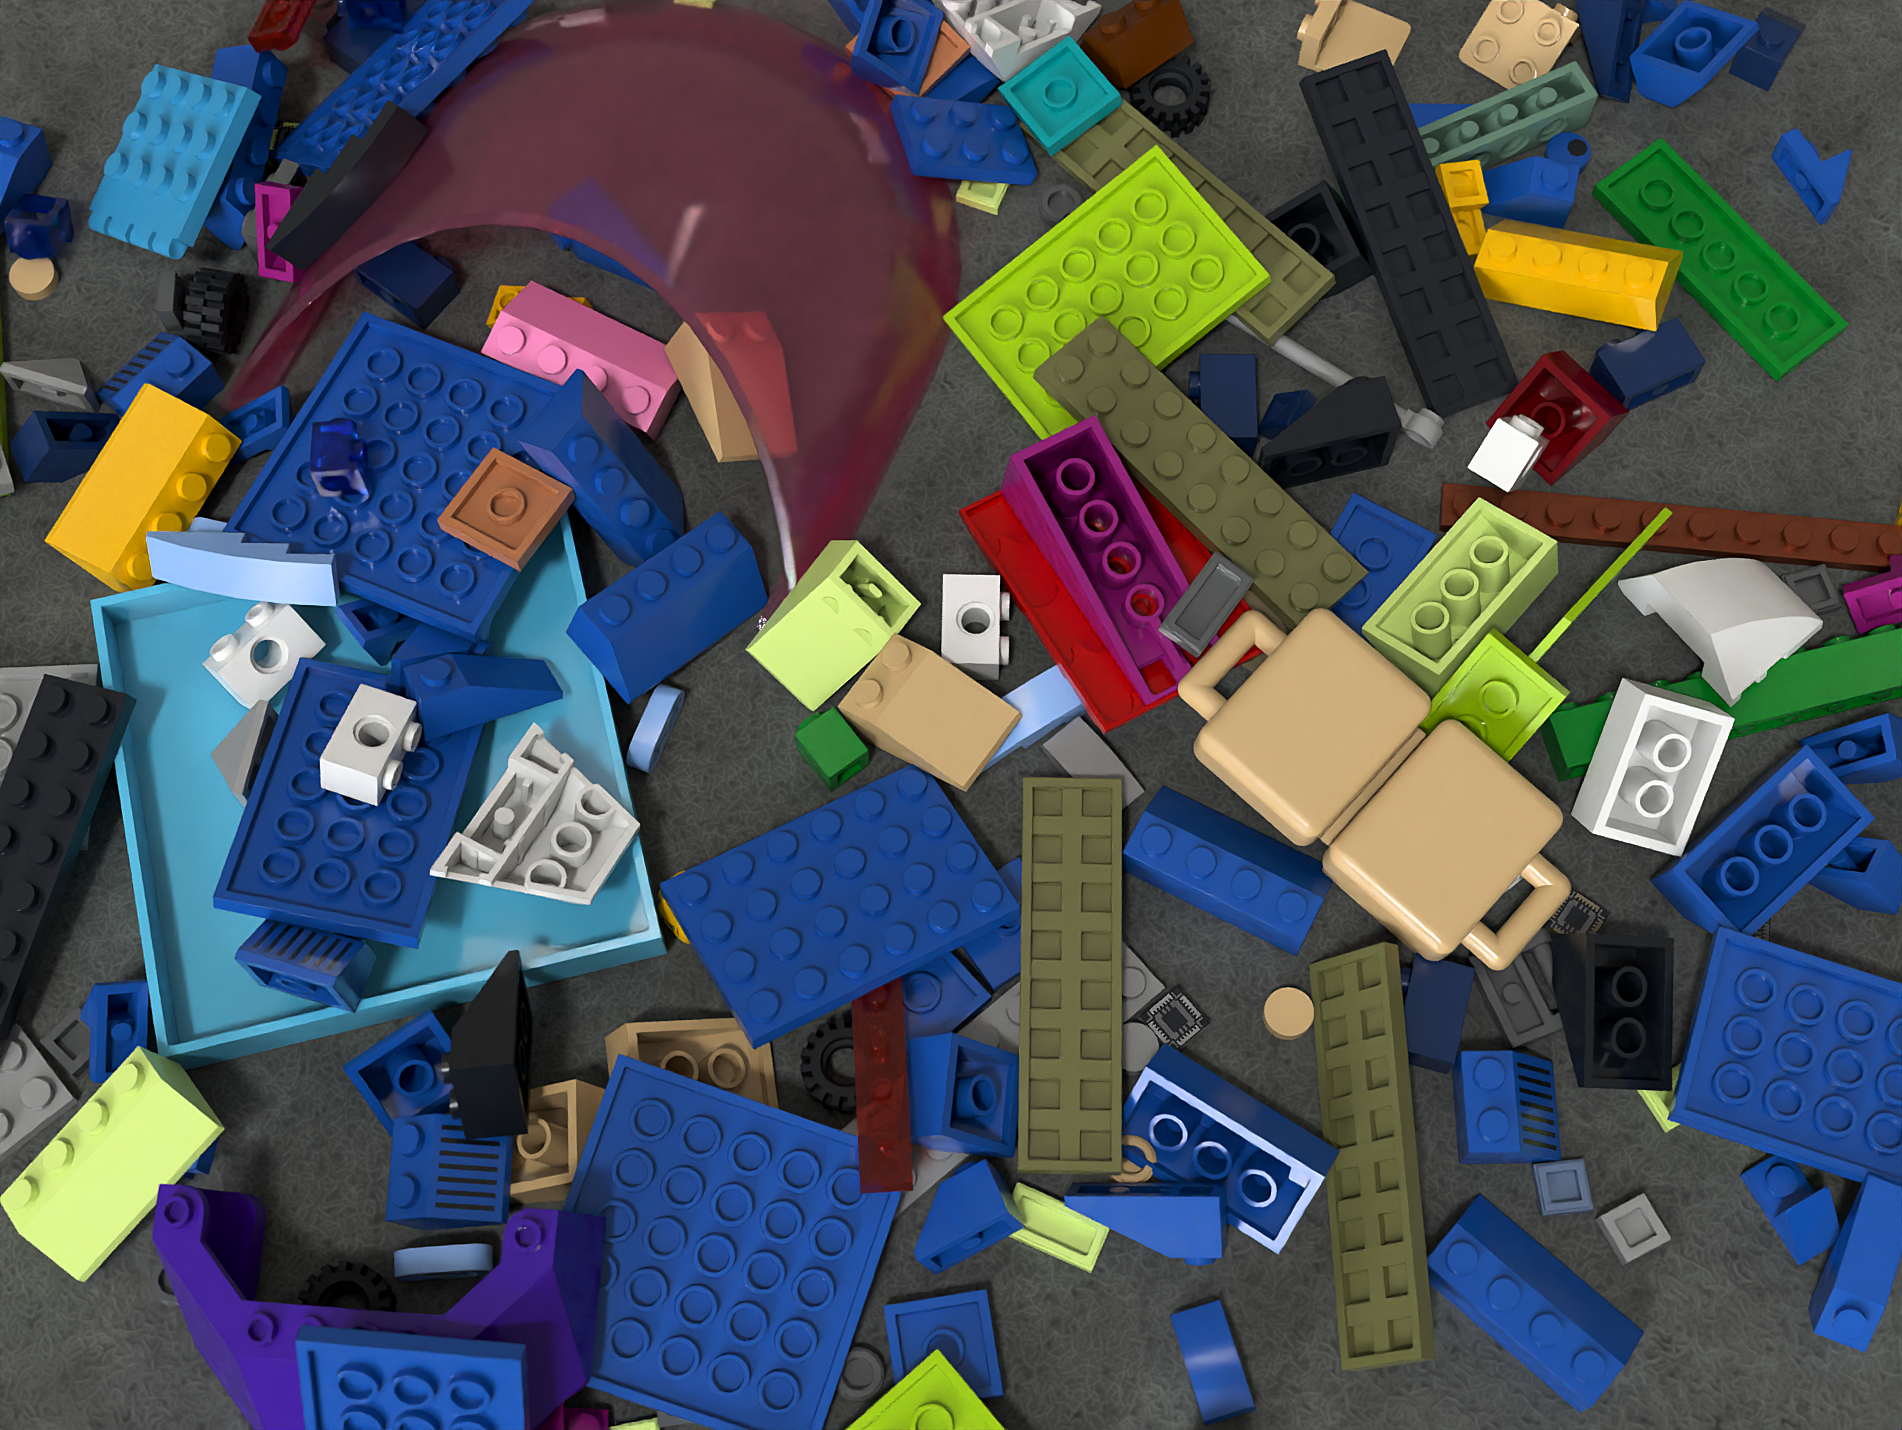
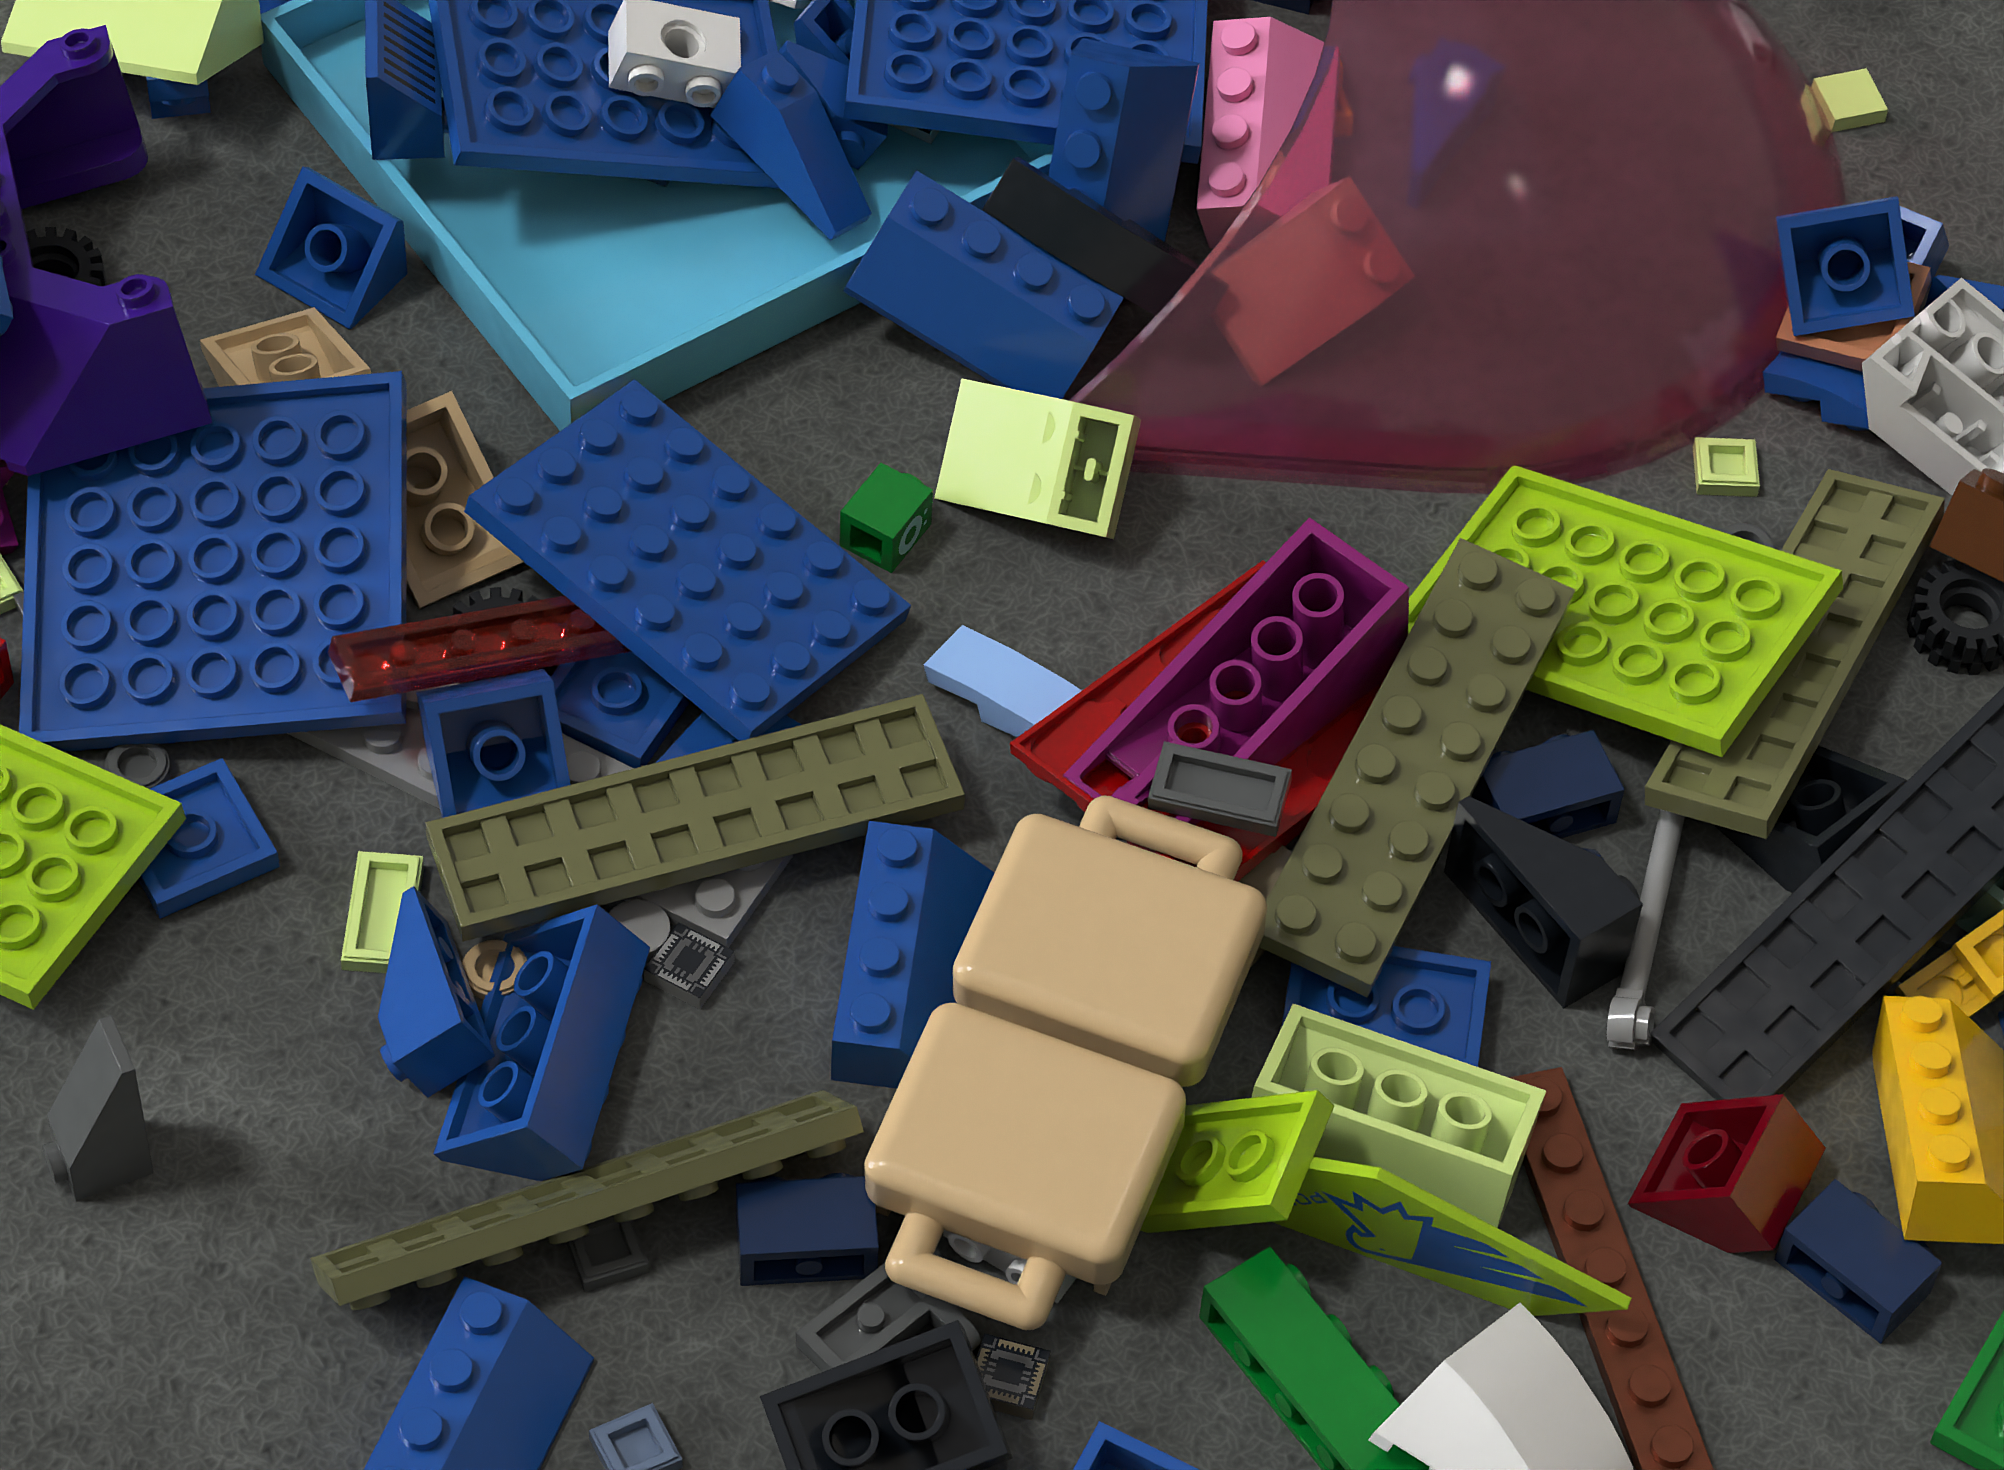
camera: 65 degrees right, 15 degrees down
(443, 1178) = (234, 304): blue slope -> none
(493, 1056) = (372, 280): black slope -> none
(506, 509) = (1007, 78): nougat plate -> none
(541, 830) = (642, 242): white wedge -> none
(655, 728) = (839, 345): light blue beam -> none
(679, 505) = (1089, 237): none -> black slope
(928, 713) = (968, 581): tan slope -> none
(962, 140) = (1761, 405): blue plate -> none
(967, 1217) = (356, 807): blue slope -> none
(968, 601) = (1106, 608): white brick -> none
(1060, 95) = (1878, 481): teal plate -> none
(1083, 754) = (990, 783): light grey slope -> none
(1212, 1362) = (260, 1111): blue slope -> none
(1288, 1013) = (748, 1083): tan tile -> none
(1505, 1108) = (710, 1344): blue slope -> none
(1510, 452) = (1623, 1103): white brick -> none
(1652, 767) = (1236, 1360): white brick -> none

